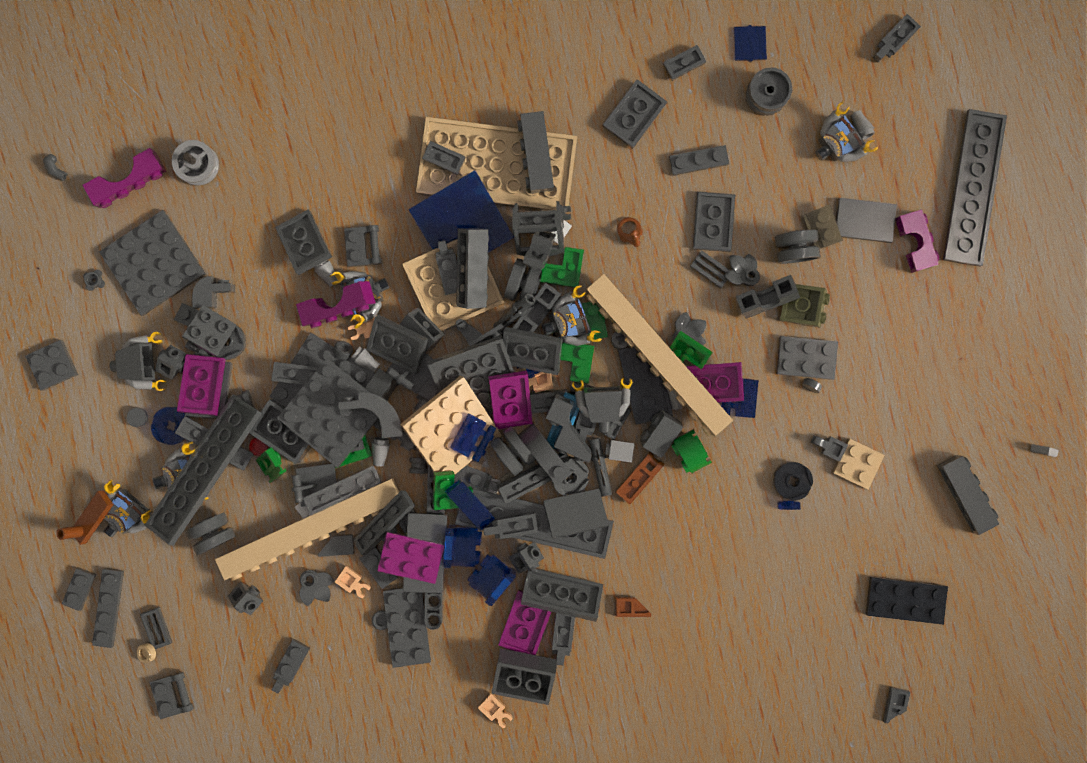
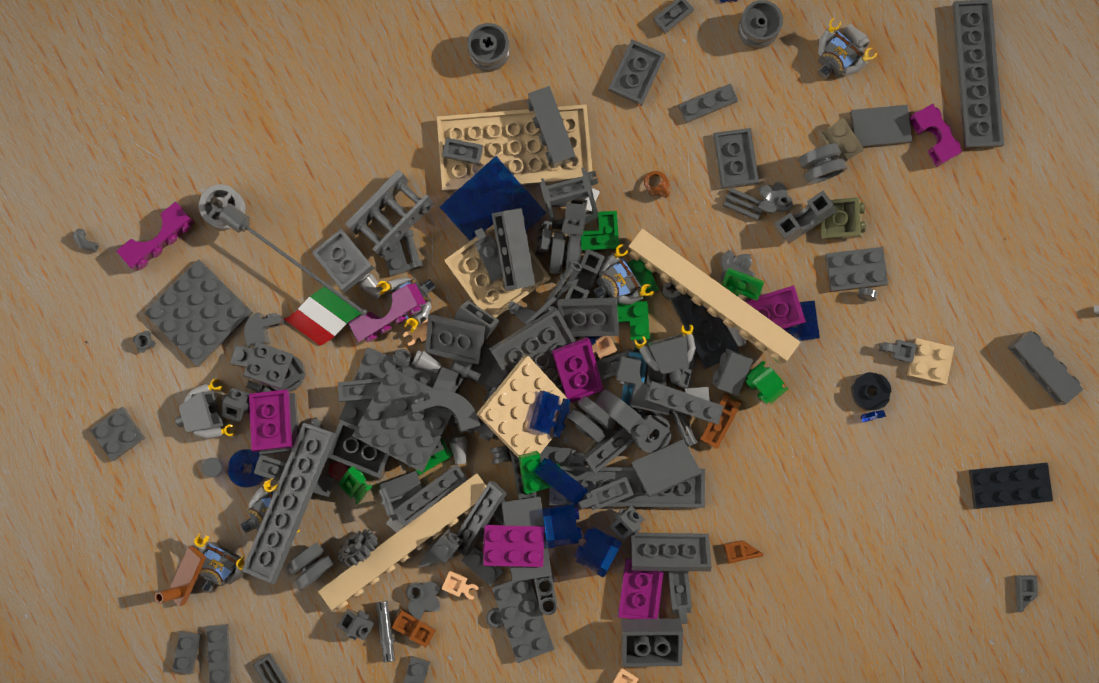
camera: 10 degrees left, 5 degrees down
(261, 526) = (357, 548): none -> dark grey gear
(272, 610) = (385, 632): none -> dark grey pin
(273, 289) = (323, 311): none -> flag
(300, 613) = (413, 628): none -> dark orange slope
(347, 542) = (446, 545): none -> dark grey brick
(348, 191) = (378, 201): none -> dark grey fence
(492, 45) = (489, 36): none -> dark grey wheel
(505, 264) = (544, 240): none -> dark grey plate
(606, 454) = (684, 403): none -> dark grey plate

